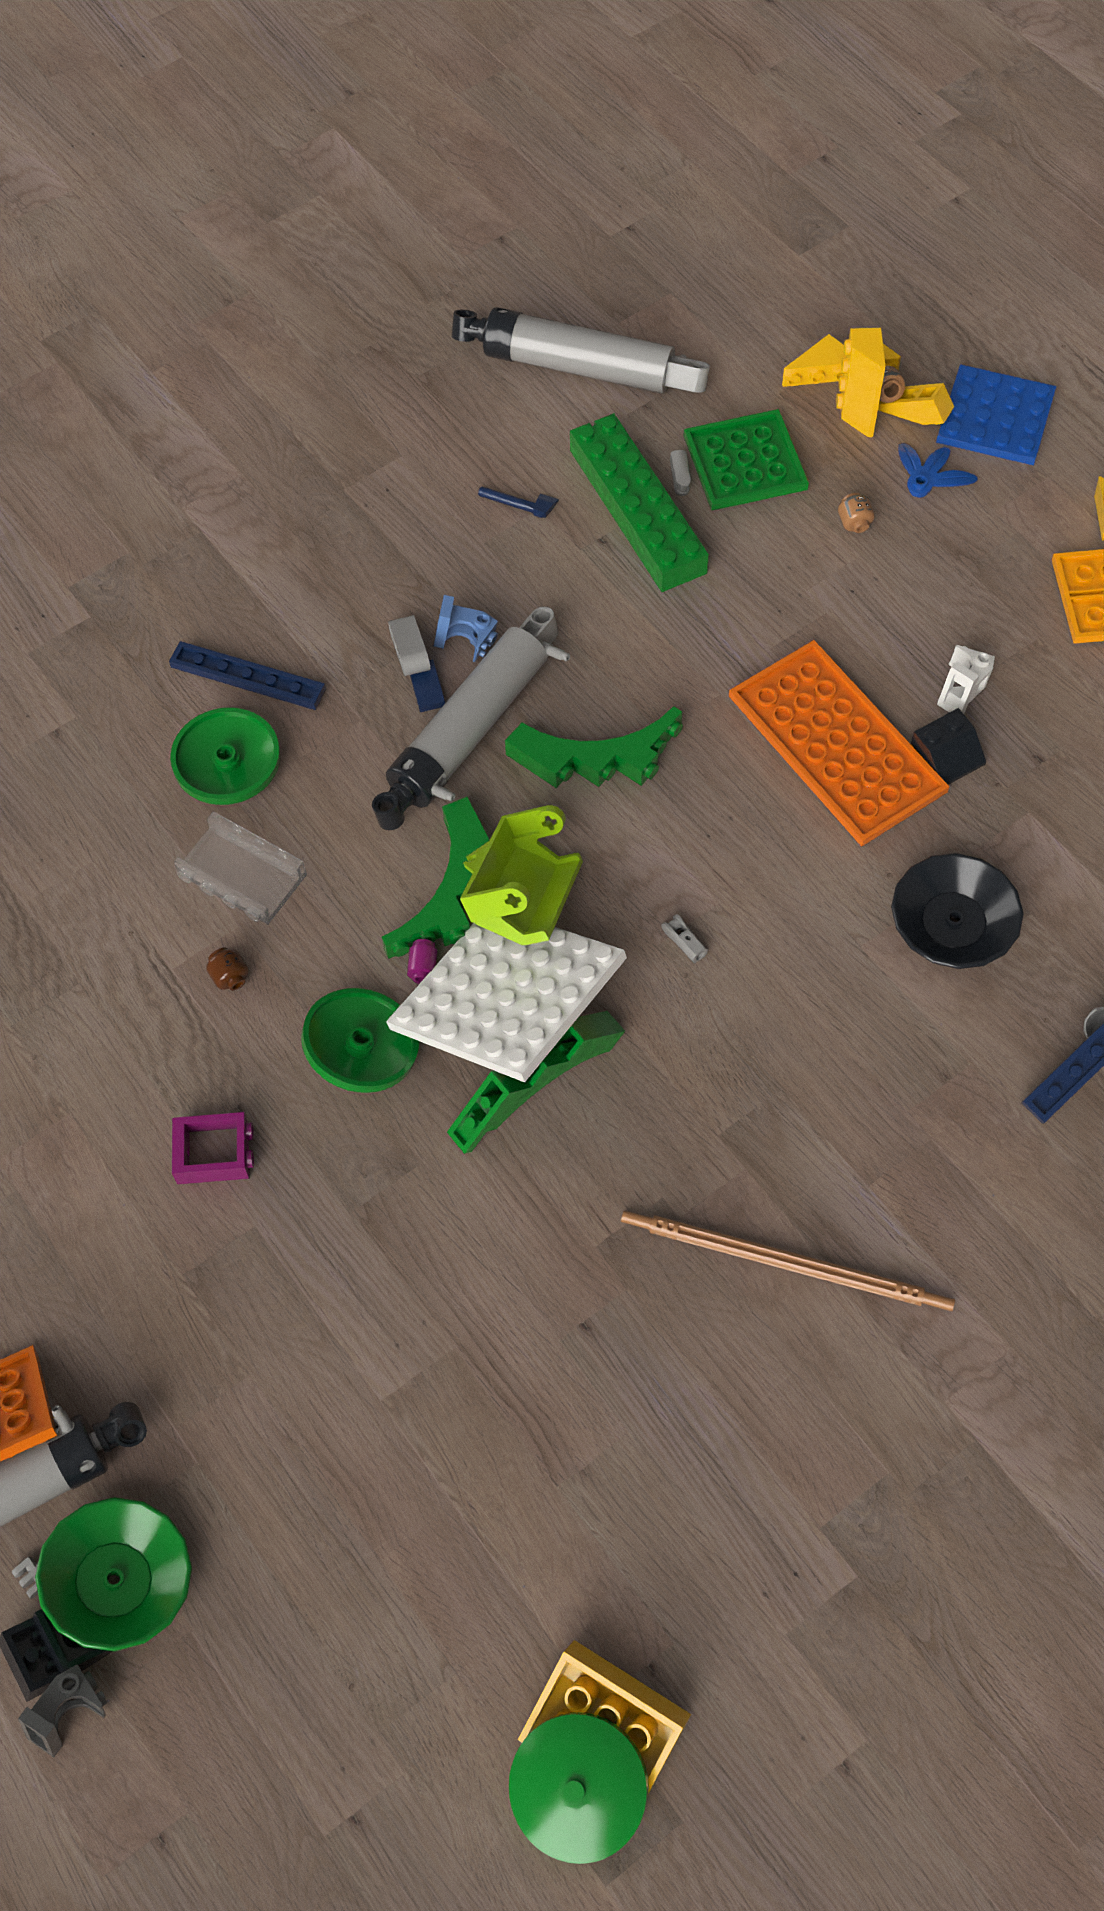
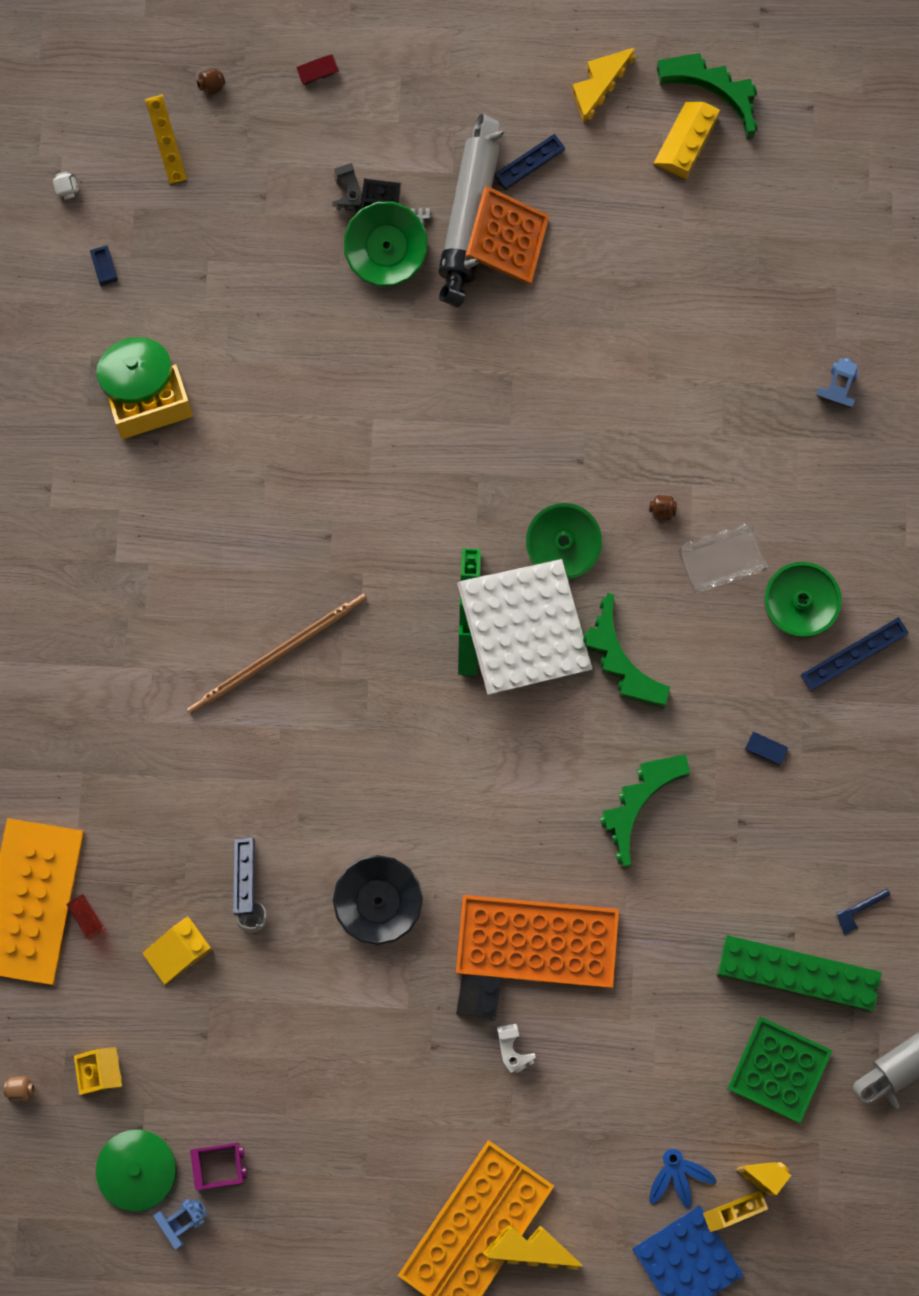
camera: 130 degrees right, 15 degrees up
(185, 1173) = (575, 414): magenta window -> none
(409, 645) = (798, 755): light grey beam -> none
(421, 959) = (586, 608): magenta brick -> none
(466, 623) = (793, 791): medium blue tile -> none
(466, 718) = (719, 749): light grey piece -> none
(519, 881) = (582, 683): lime piece -> none
(680, 472) = (802, 1022): light grey bar -> none
(686, 940) = (483, 753): light grey bar -> none
(823, 363) = (812, 1193): yellow slope -> none
(855, 512) = (681, 1096): medium nougat head -> none
(892, 386) = (757, 1201): medium nougat head -> none

